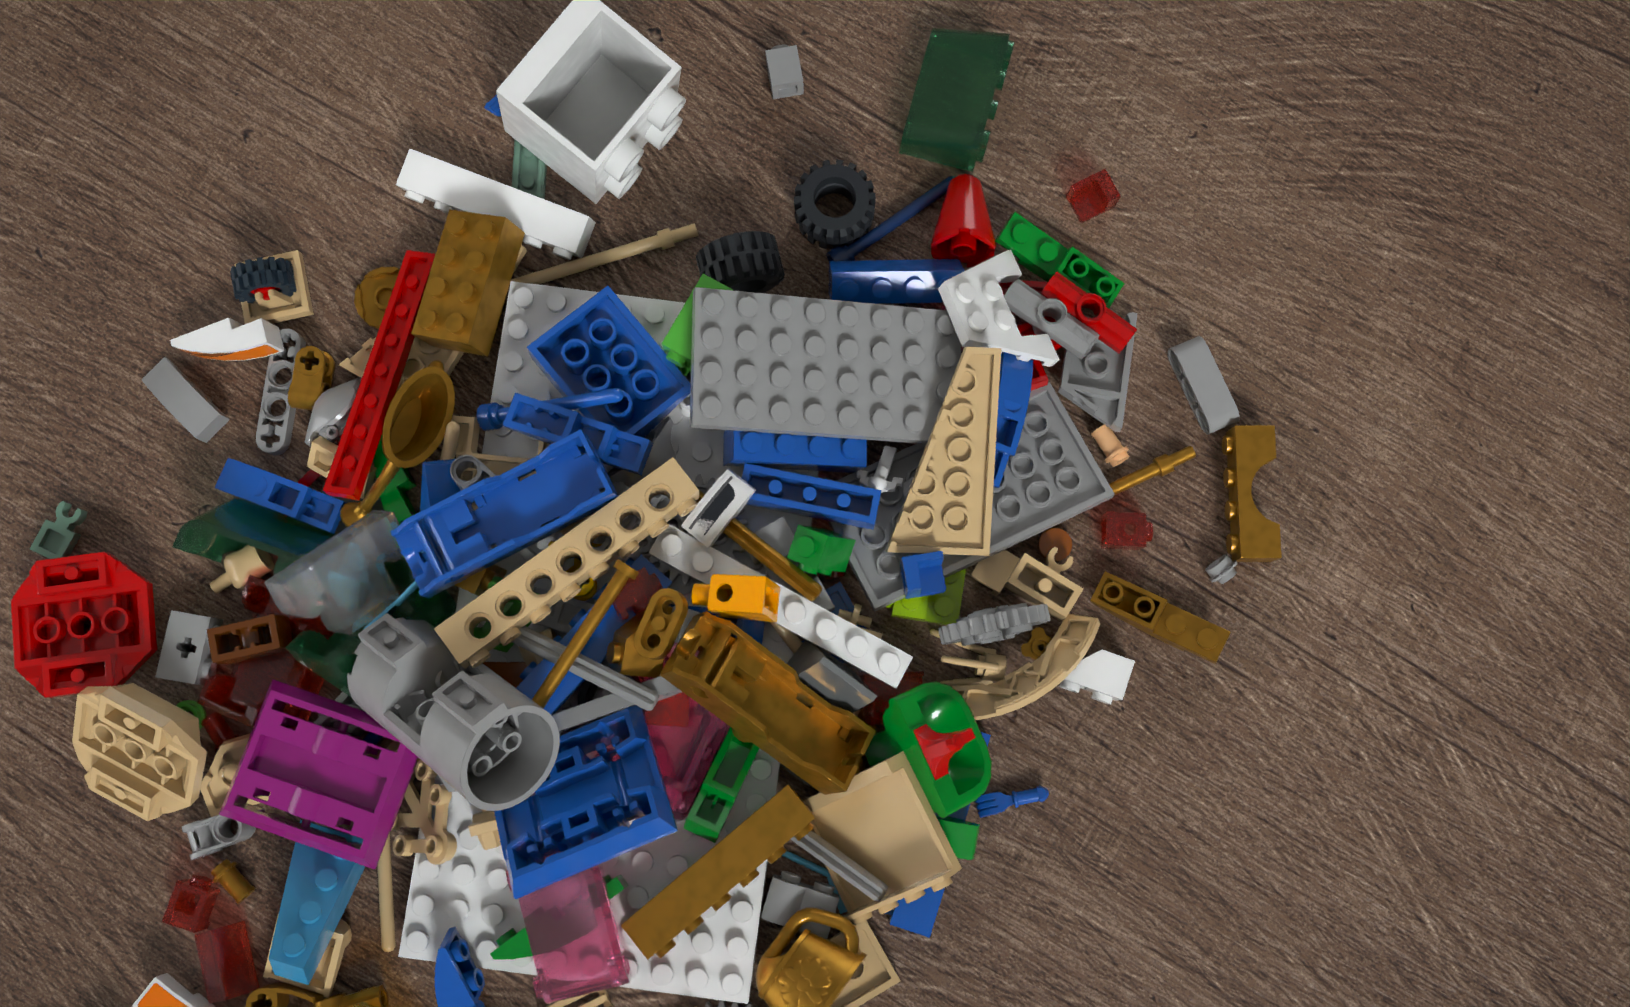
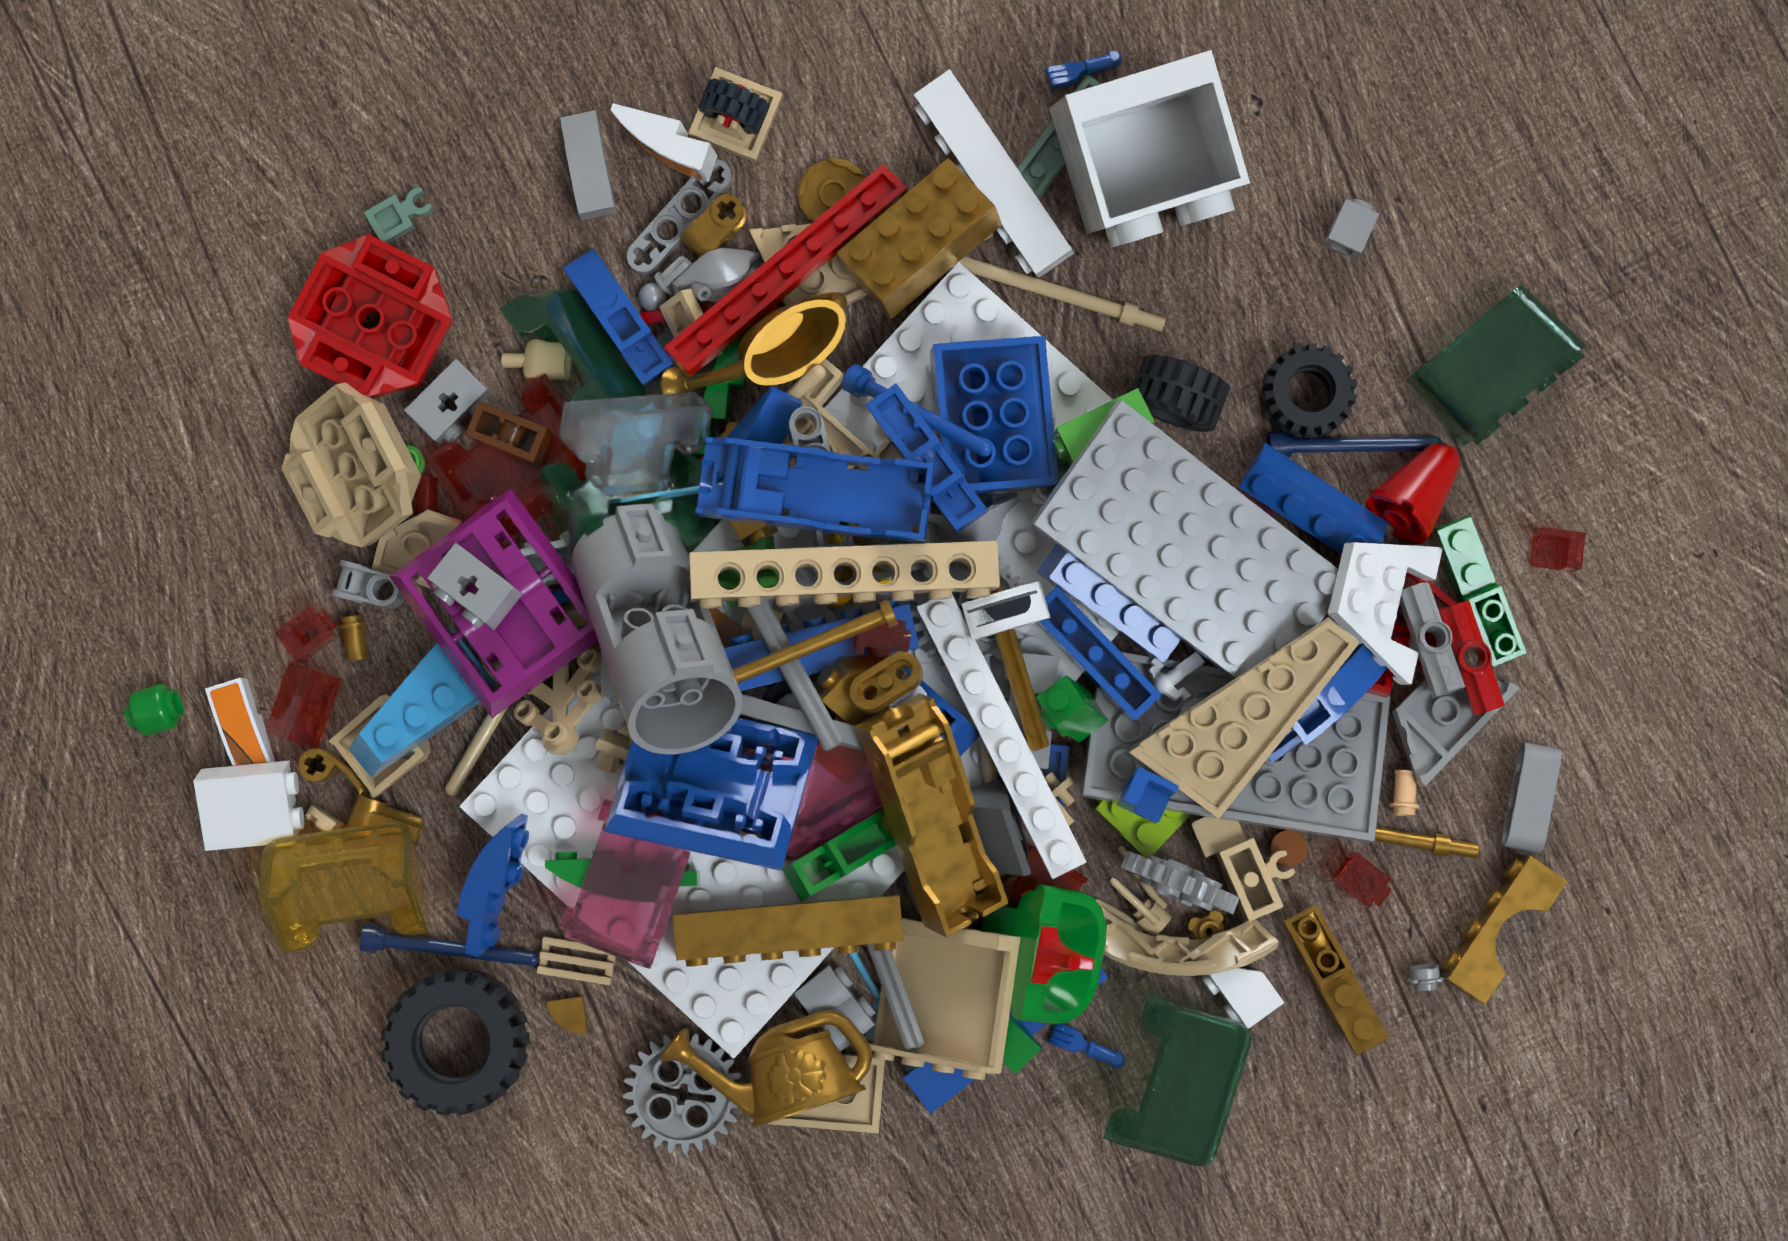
camera: 35 degrees right, 5 degrees up
(266, 777) = (461, 569): none -> light grey brick
(297, 461) = (655, 294): none -> light grey axle
(751, 597) = (982, 712): light orange torso -> none
(1109, 774) = (1188, 1084): none -> clear green windscreen

